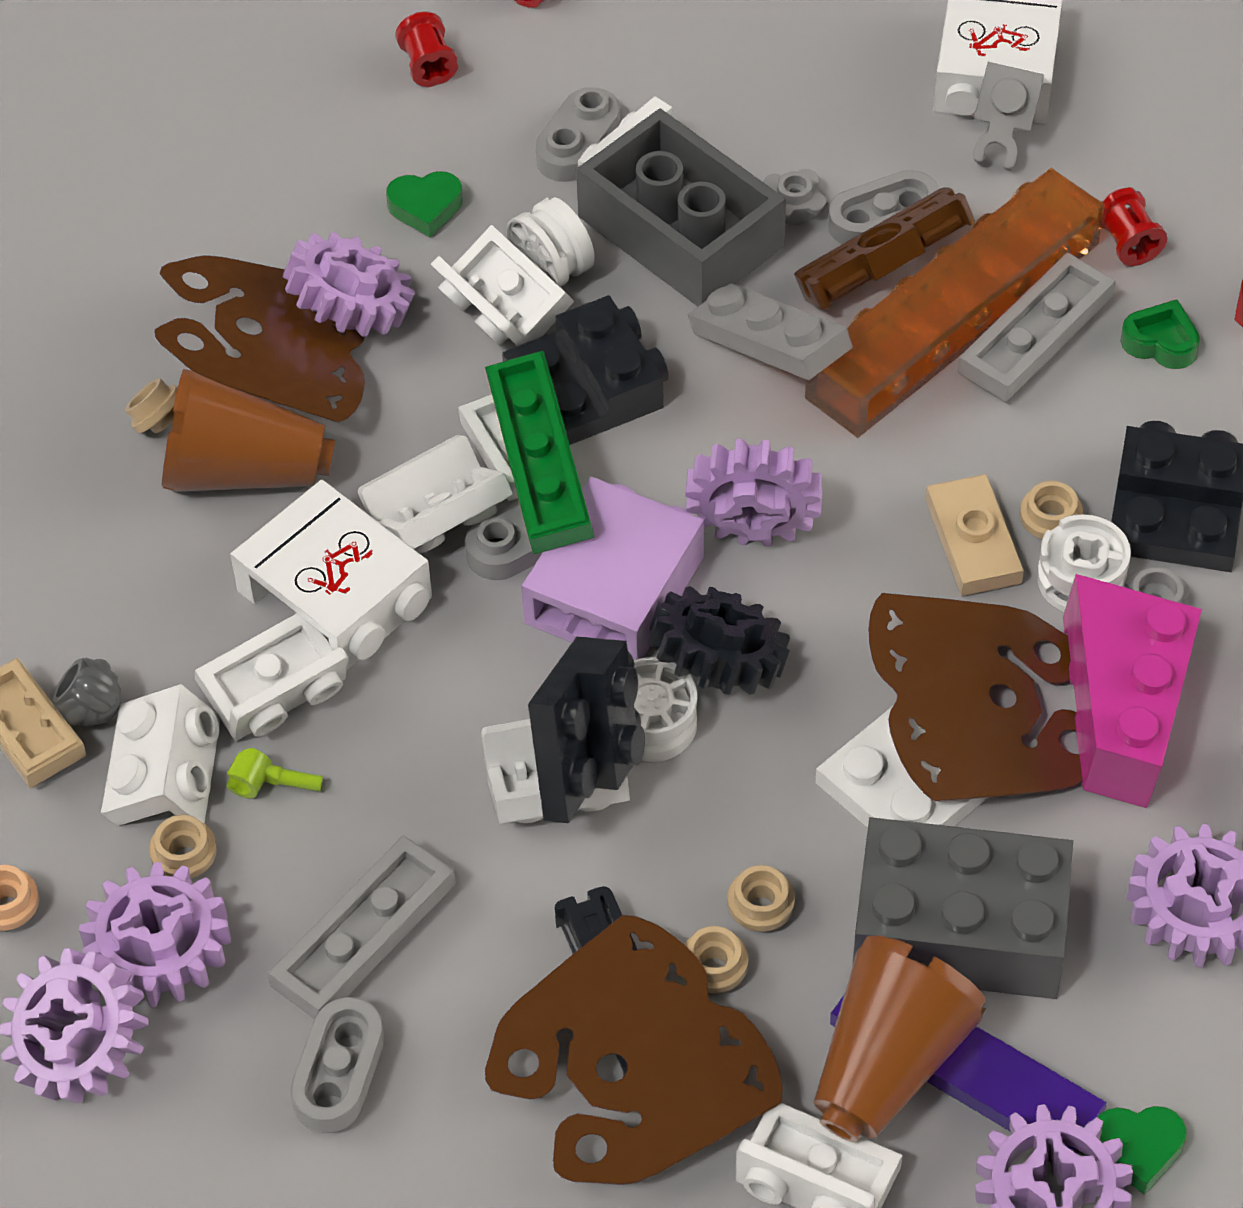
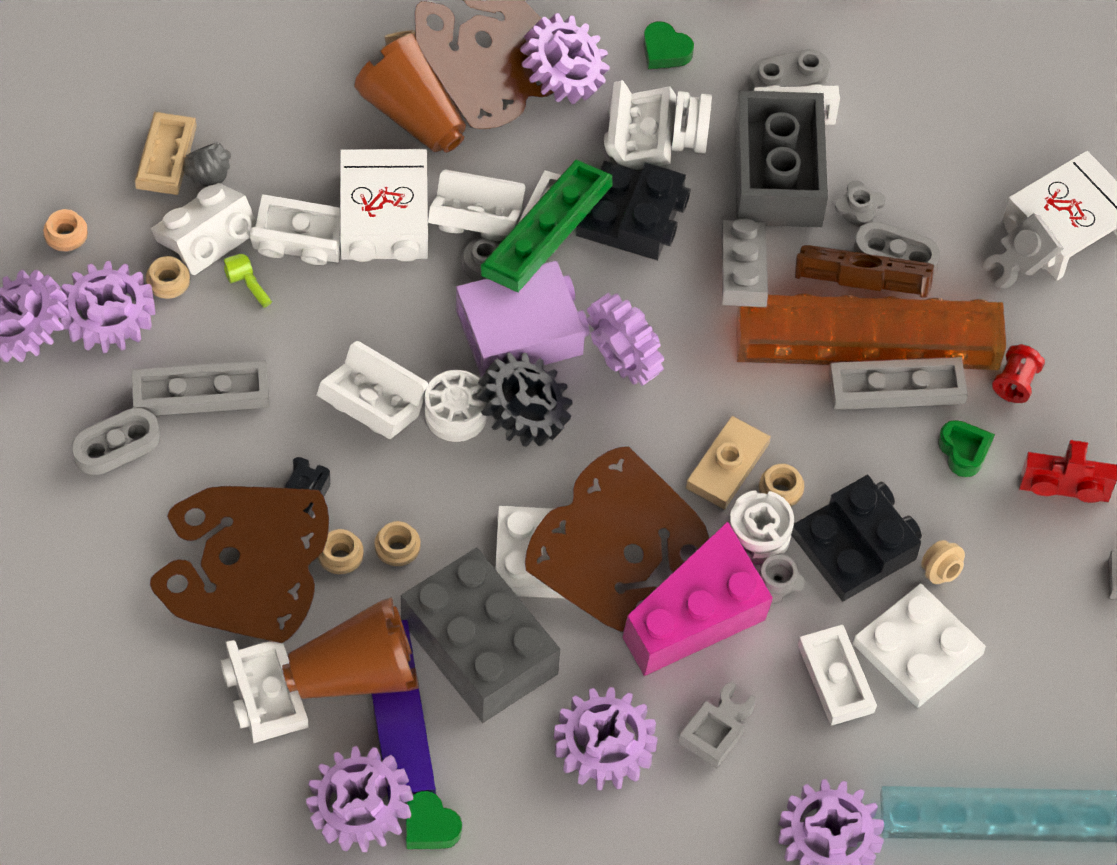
camera: 40 degrees right, 5 degrees up
(585, 725) = (385, 377): black plate -> none

